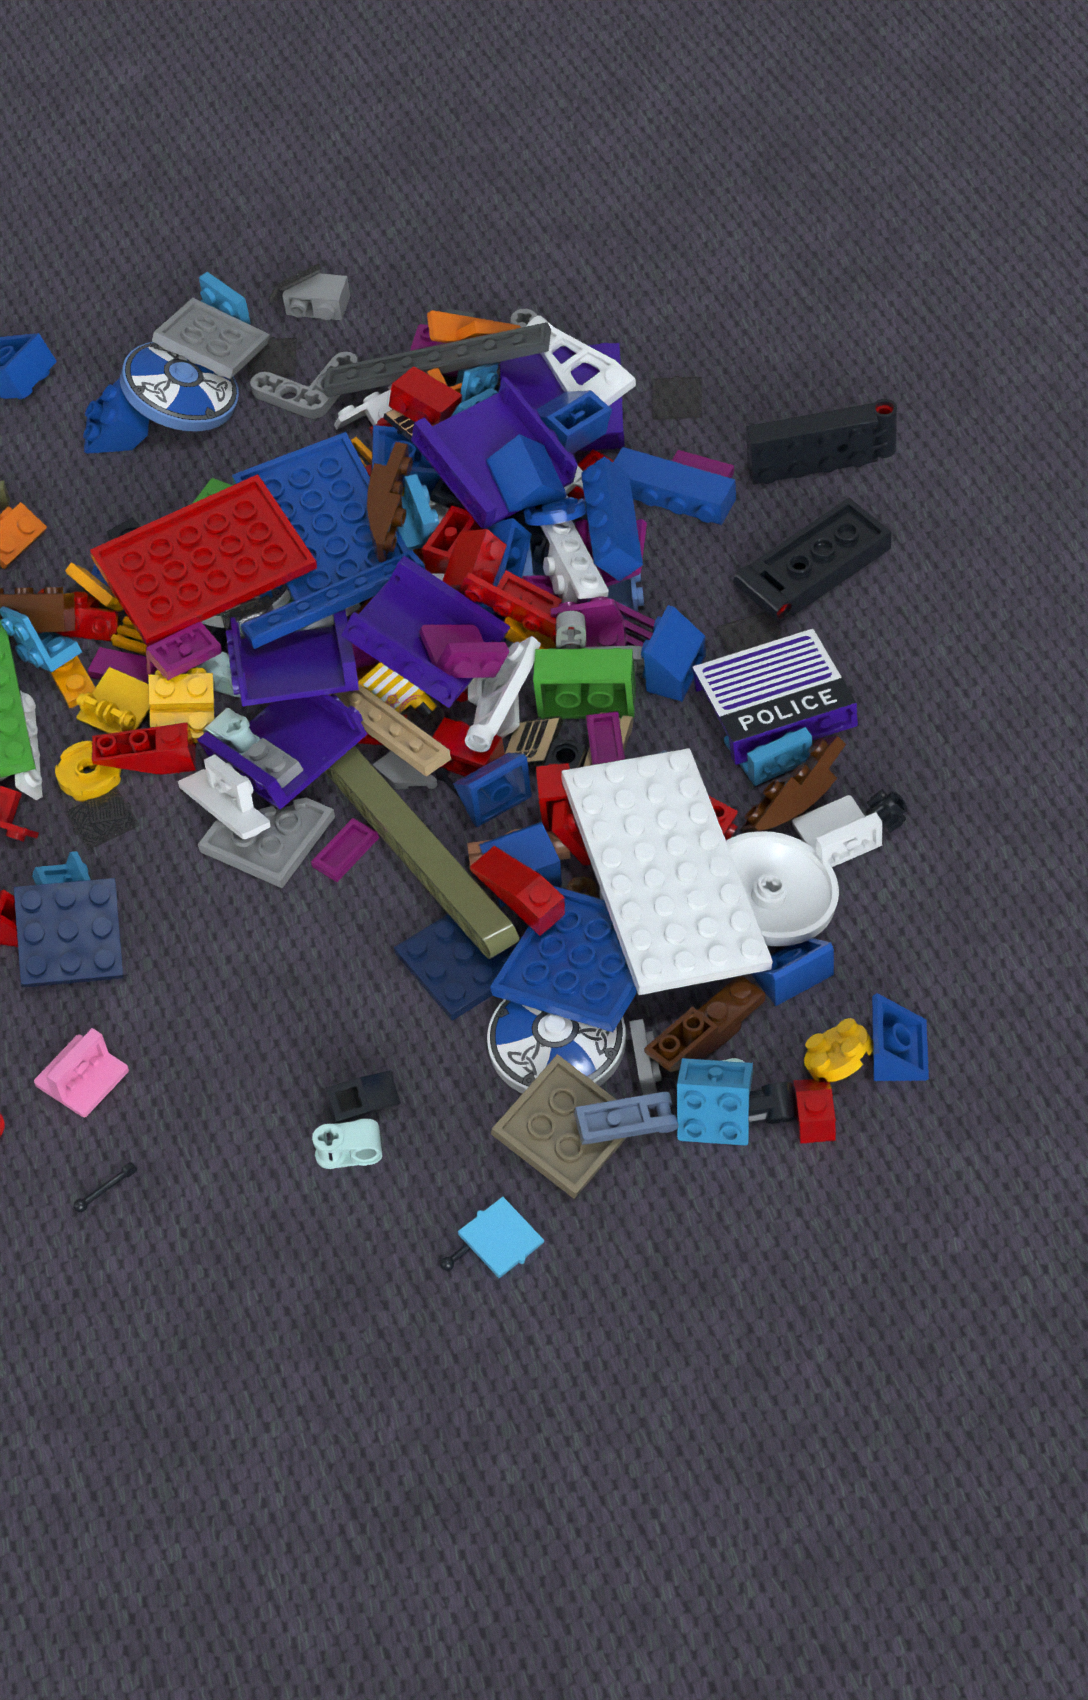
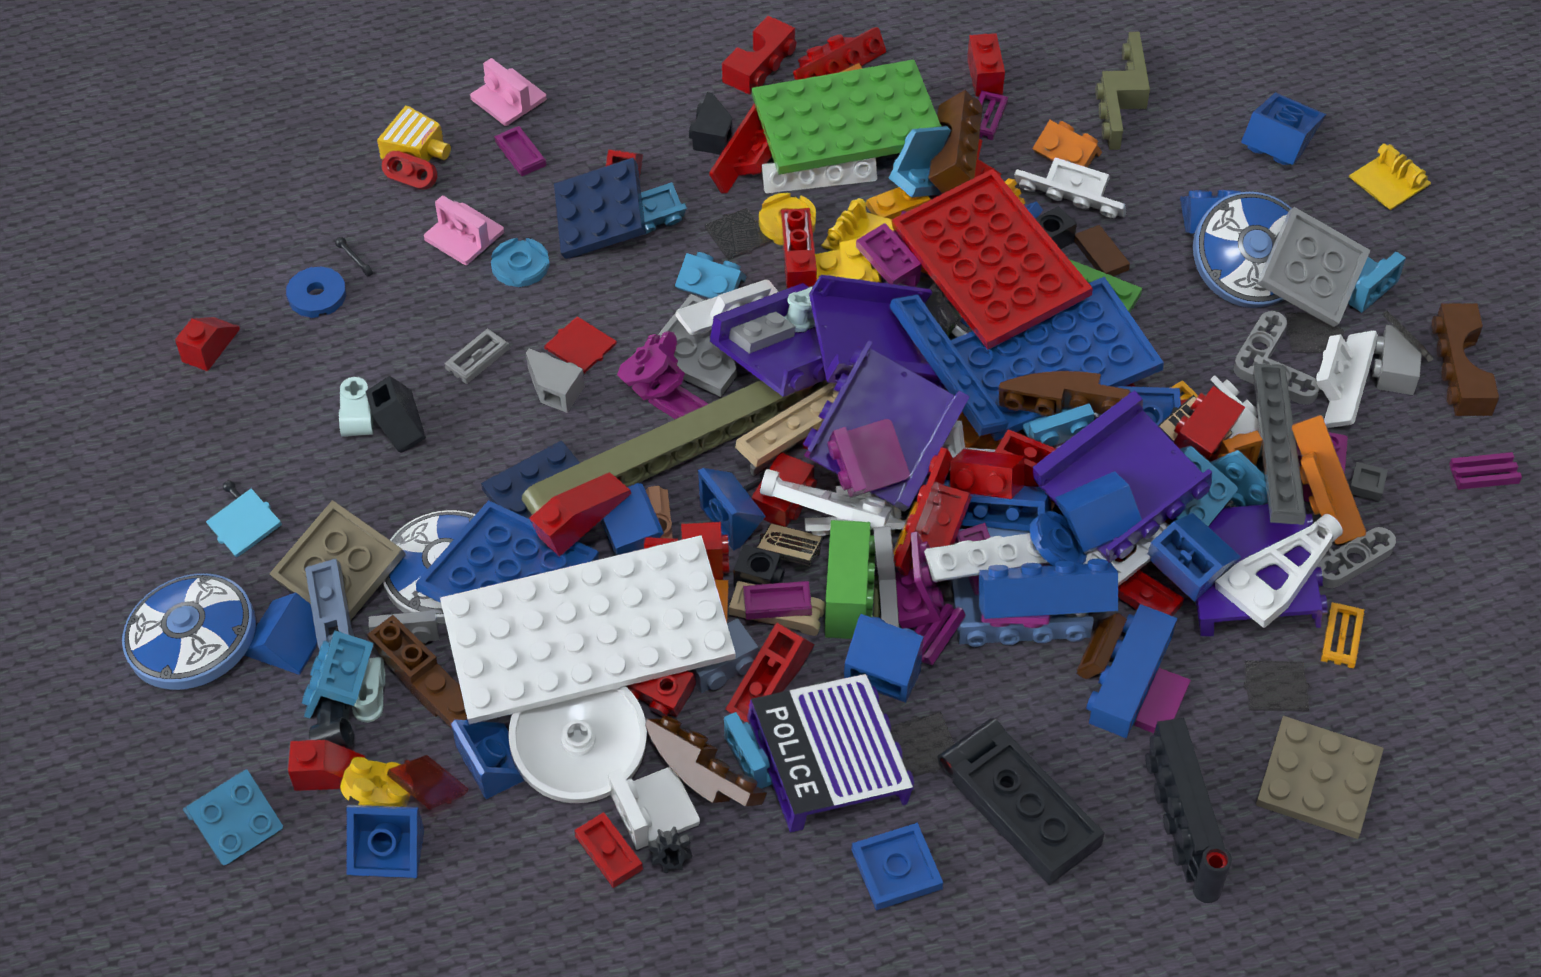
camera: 85 degrees right, 0 degrees up
(64, 528) = (1073, 183): none -> white bracket
(79, 293) = (1391, 177): none -> yellow hinge
(129, 1027) = (511, 263): none -> dark azure tile
(156, 507) = (1101, 251): none -> reddish brown tile
(164, 1235) = (316, 278): none -> blue tile
(173, 832) = (708, 278): none -> dark azure bracket
(235, 1315) = (204, 341): none -> red slope
(254, 949) = (580, 344): none -> red piece
(286, 1058) = (480, 359): none -> light grey tile
(307, 860) = (653, 366): none -> magenta hinge
(314, 960) = (554, 380): none -> light grey slope
(336, 331) = (1345, 374): none -> white bracket
(351, 251) = (1470, 388): none -> reddish brown arch
(440, 236) = (1485, 465): none -> magenta tile
(631, 358) = (1338, 656): none -> light orange tile
(647, 1174) = (285, 634): none -> blue slope
(651, 1261) = (189, 631): none -> dish
(655, 508) = (1101, 646): none -> reddish brown tile
(673, 732) = (772, 668): none -> red slope
(769, 372) = (1320, 777): none -> dark tan plate
(826, 1013) = (427, 782): none -> clear red piece
(869, 1182) = (234, 817): none -> dark azure bracket
(885, 649) = (897, 866): none -> blue plate
(886, 862) = (608, 850): none -> red plate

